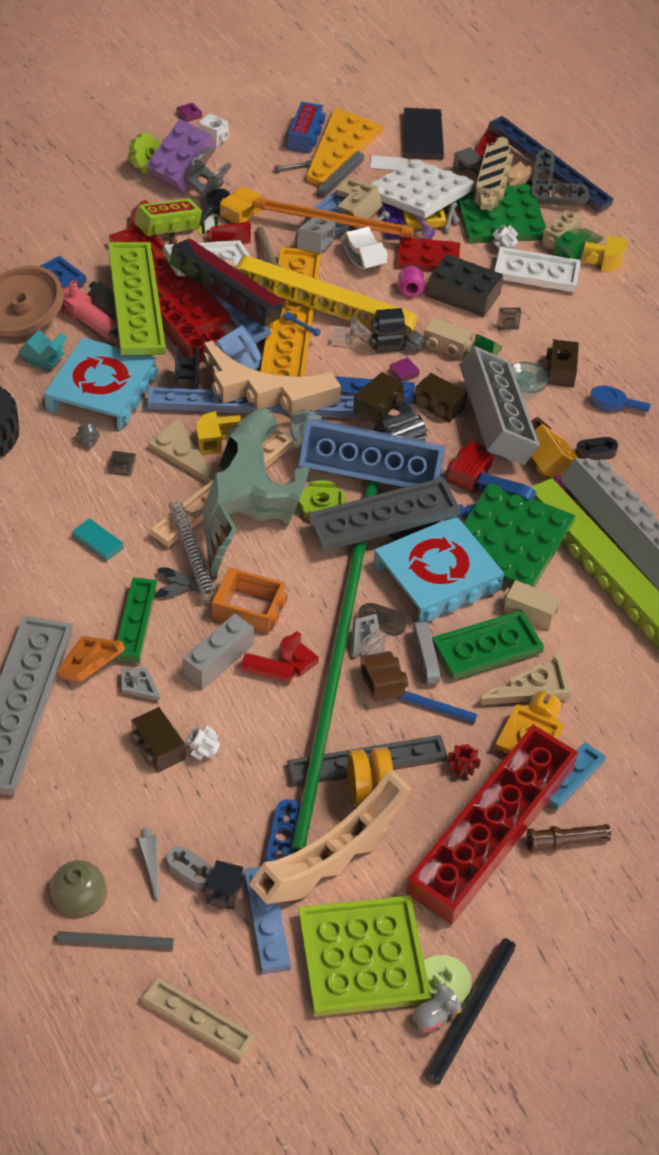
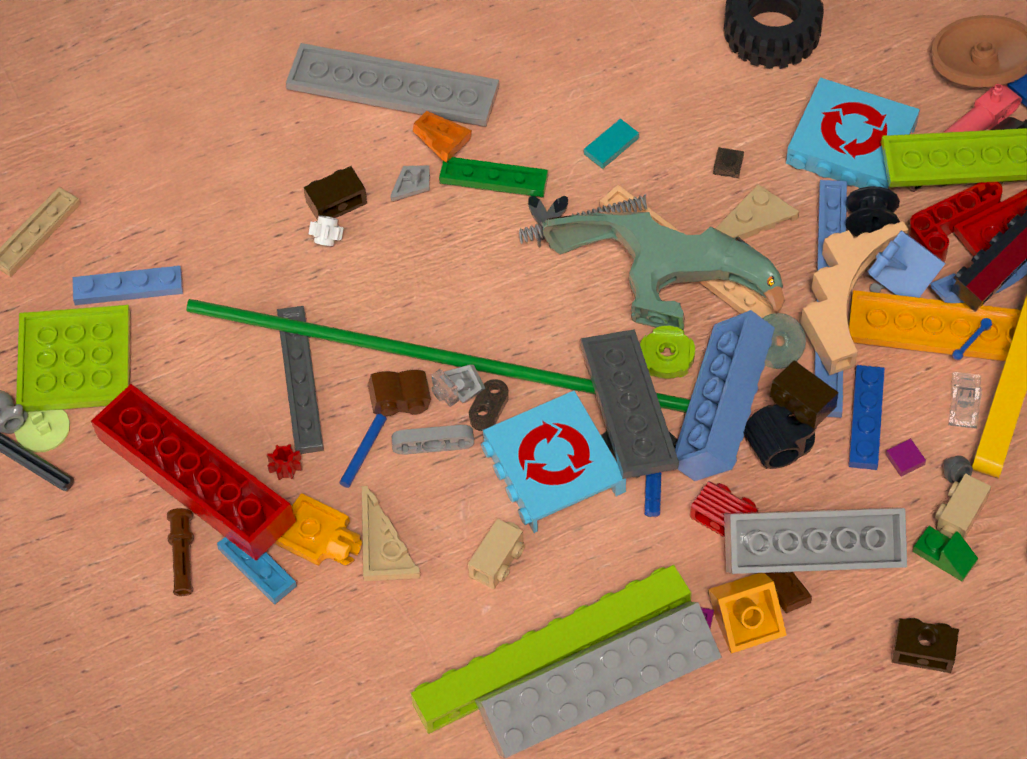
camera: 100 degrees right, 10 degrees up
(42, 351) = (903, 78): teal brick -> none
(78, 889) = (177, 138): olive cylinder -> none
(87, 435) = (767, 128): dark grey plate -> none
(115, 940) = (122, 170): dark grey bar -> none
(148, 850) = (209, 192): light grey piece -> none
(187, 870) = (189, 224): light grey beam -> none
(212, 430) = (776, 242): yellow brick -> none
(218, 651) = (442, 244): light grey brick -> none
(224, 885) = (161, 247): black brick -> none
(255, 585) = (518, 252): orange window -> none
(268, 667) = (423, 292): red piece -> none
(279, 826) = (206, 292): blue beam -> none
(297, 653) = (440, 320): red bracket -> none
(359, 832) = (160, 306): light nougat arch -> none
(366, 773) = (257, 364): light orange wheel -> none
(387, 330) = (959, 429): black brick -> none
(440, 397) = (850, 485): dark brown brick -> none
(487, 645) = (441, 503): green plate -> none
(507, 485) = (662, 549): blue beam -> none
(508, 318) = (1011, 588): clear smoke plate -> none
(518, 532) = (600, 543): green plate -> none
(530, 377) = (895, 584): clear light blue dish -> none
(597, 448) = (771, 667): black beam -> none
(613, 399) = (859, 702): blue piece -> none

